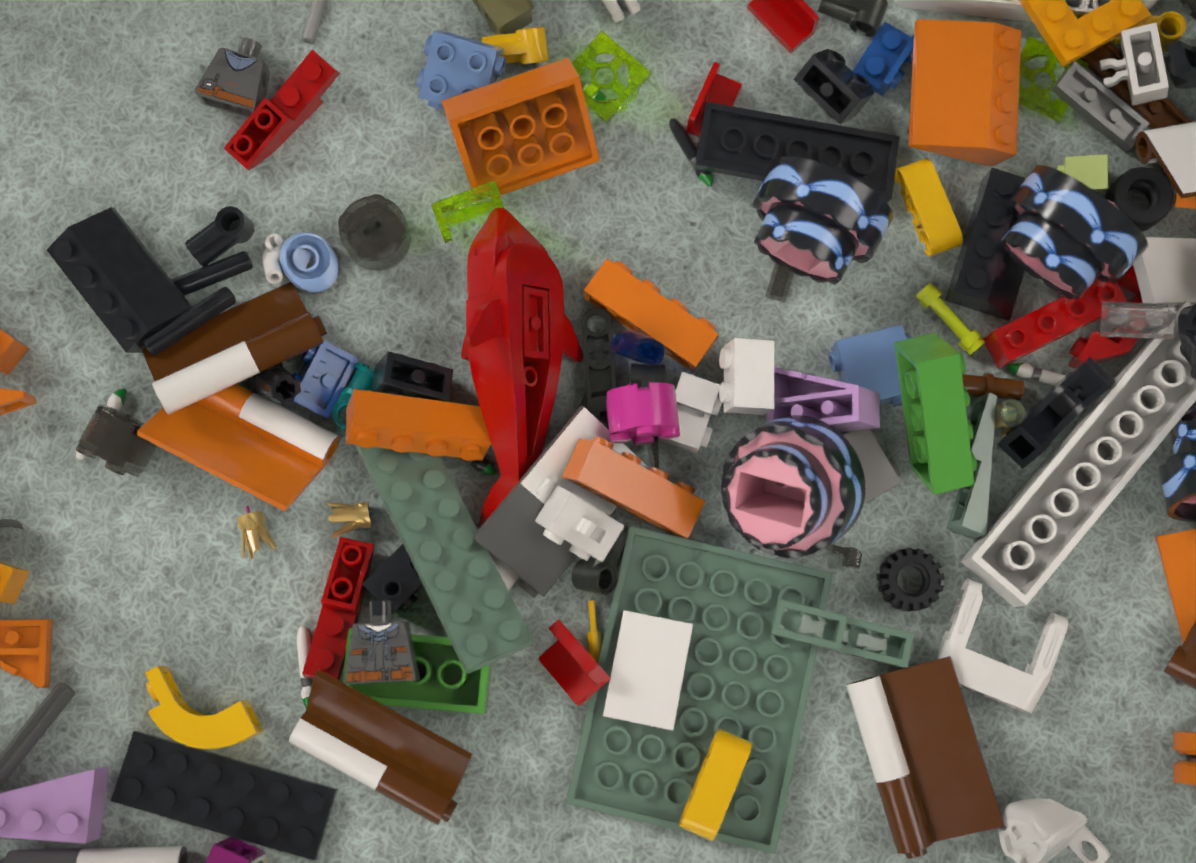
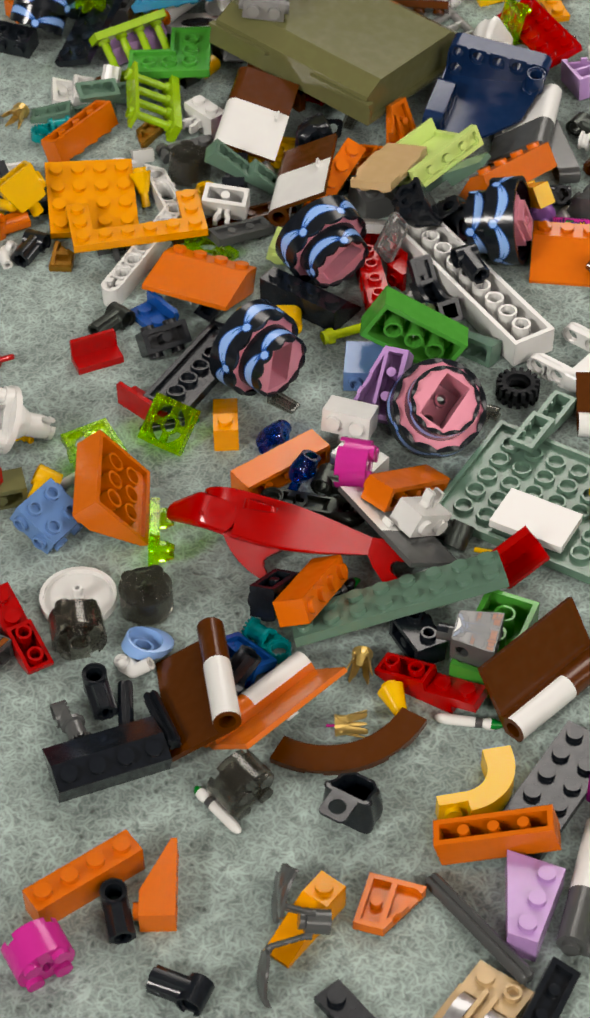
camera: 70 degrees left, 35 degrees down
(109, 753) = (493, 833): none -> orange brick
(127, 570) = (352, 801): none -> black piece
(163, 228) = (69, 723): none -> dark grey connector
(214, 553) = (350, 756): none -> reddish brown tile
(291, 176) = (77, 628): none -> clear smoke brick
(311, 571) = (393, 695): none -> yellow cone
(363, 155) = (79, 583): none -> white piece
(691, 132) = (178, 445): none -> clear neon green piece
(699, 288) = (273, 435): none -> clear blue piece
(710, 219) = (225, 424): none -> light orange slope
(1123, 443) = (469, 260): none -> black piece

